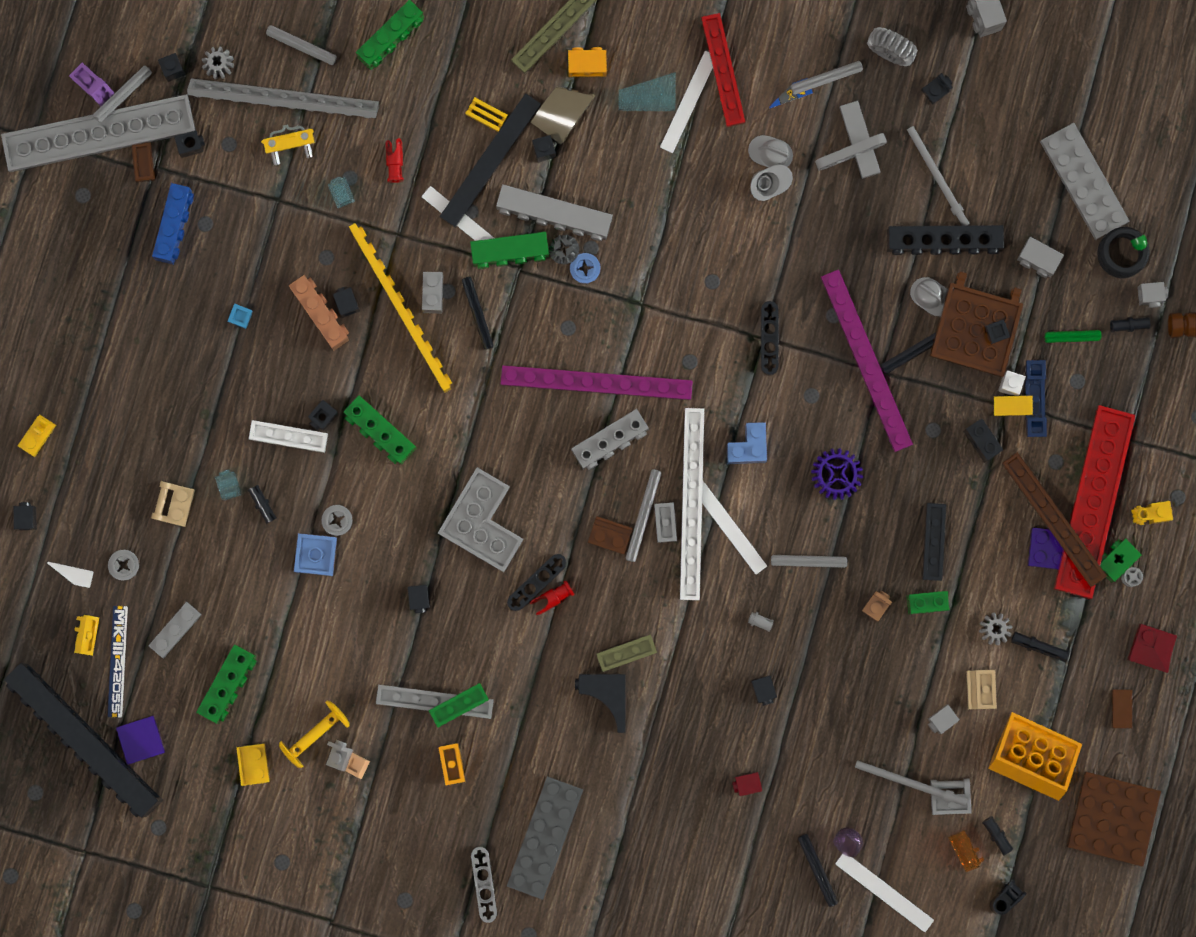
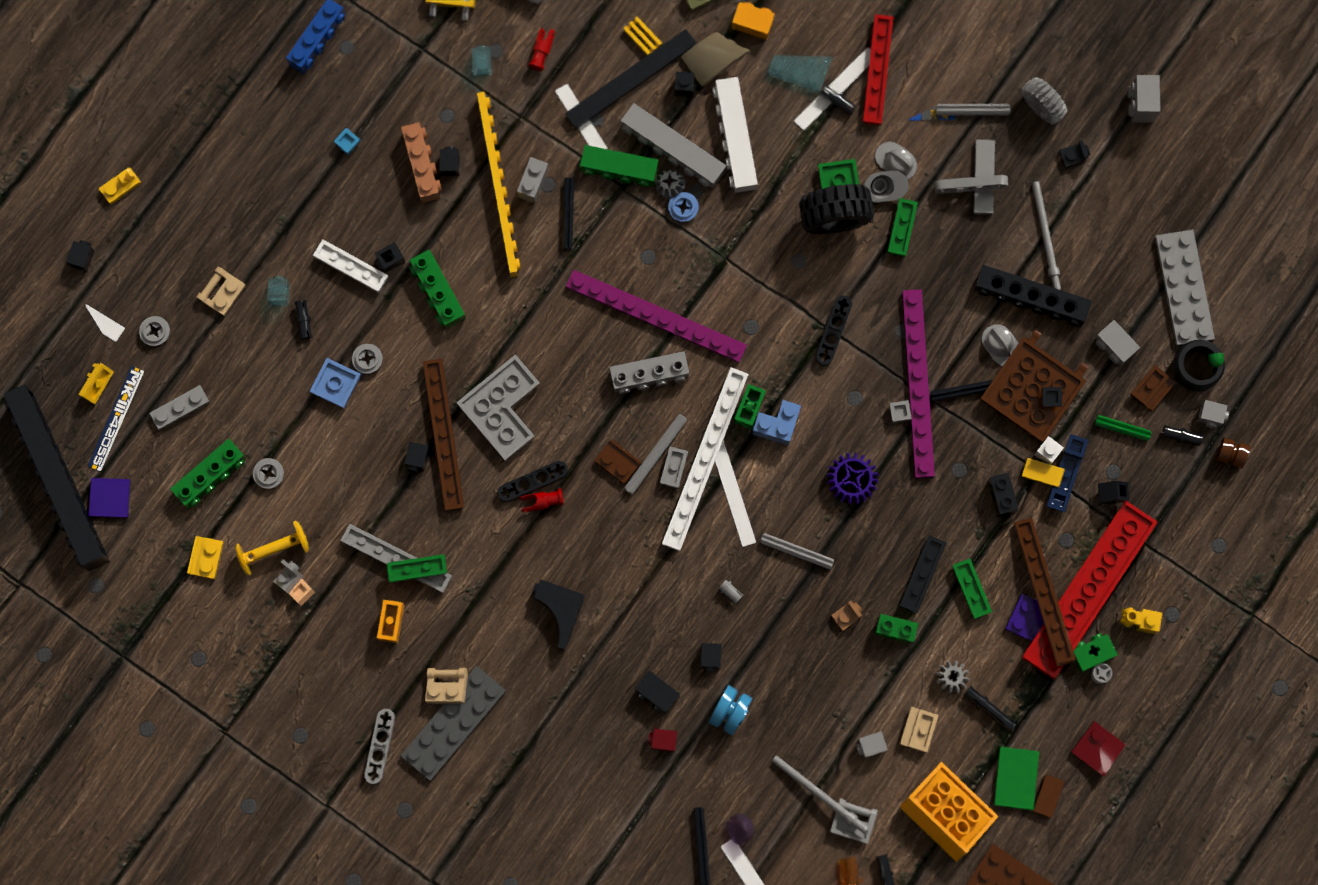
camera: 25 degrees right, 5 degrees down
(276, 670) = (265, 465): none -> light grey gear
(436, 567) = (443, 434): none -> reddish brown plate
(528, 811) = (446, 691): none -> tan plate
(610, 181) = (736, 135): none -> white brick
(626, 653) = (592, 576): olive plate -> none
(695, 112) = (837, 99): none -> black pin
(717, 440) = (749, 406): none -> green brick
(724, 190) = (838, 173): none -> green plate
(725, 741) = (657, 693): none -> black brick
(733, 222) = (836, 209): none -> black tyre
(798, 734) = (730, 710): none -> dark azure wheel
(800, 216) = (902, 227): none -> green plate
(859, 394) = (900, 411): none -> light grey plate
(984, 539) = (972, 588): none -> green plate
(1085, 402) = (1113, 492): none -> black brick
(1086, 702) = (1016, 778): none -> green tile
(1087, 289) = (1152, 388): none -> reddish brown plate

